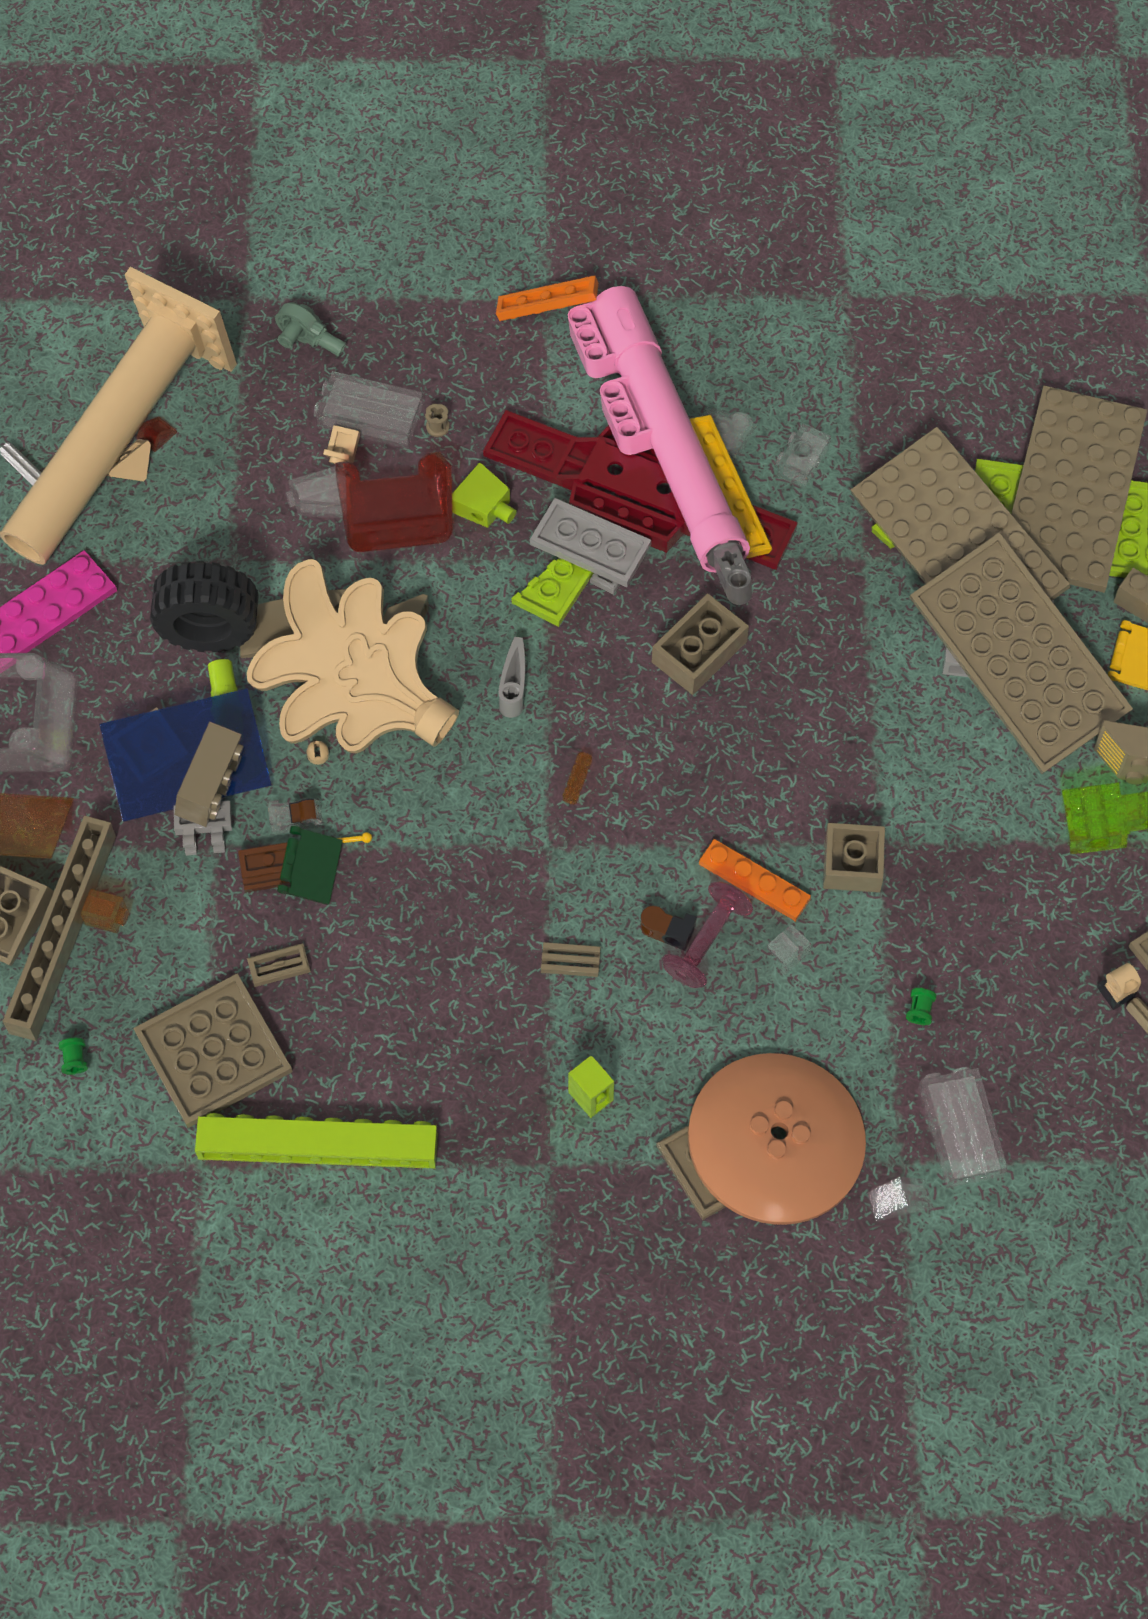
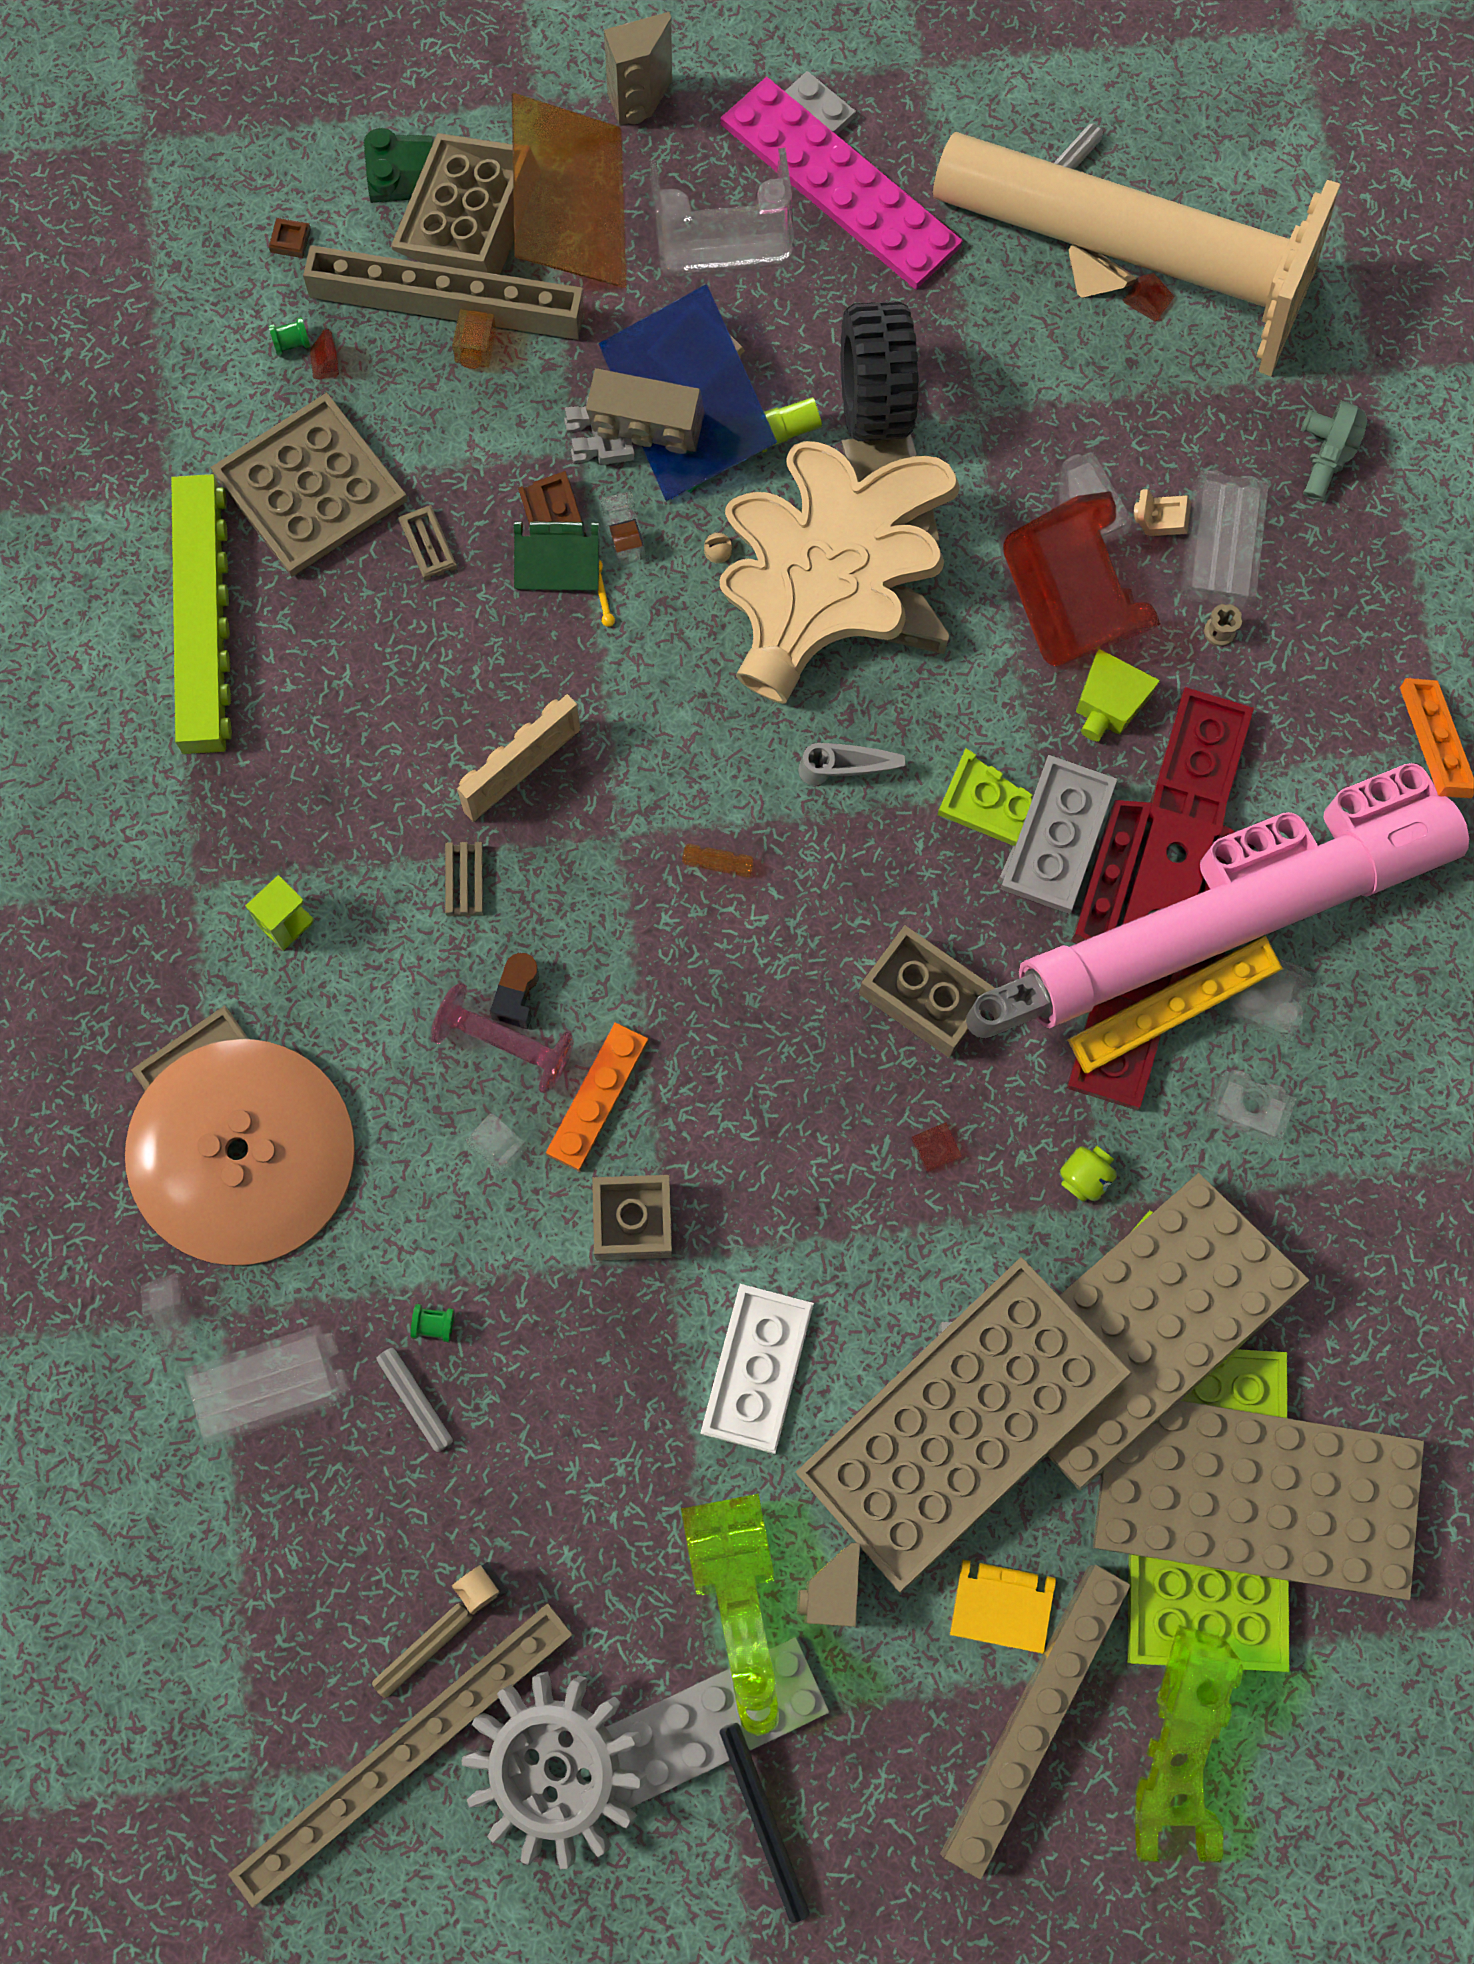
camera: 80 degrees right, 10 degrees up
(96, 1030) = (324, 356): none -> clear red slope
(479, 897) = (511, 764): none -> tan plate
(812, 658) = (936, 1147): none -> clear red tile
(842, 561) = (1088, 1173): none -> lime head
(966, 792) = (757, 1369): none -> white tile
(976, 1025) = (414, 1399): none -> light grey axle

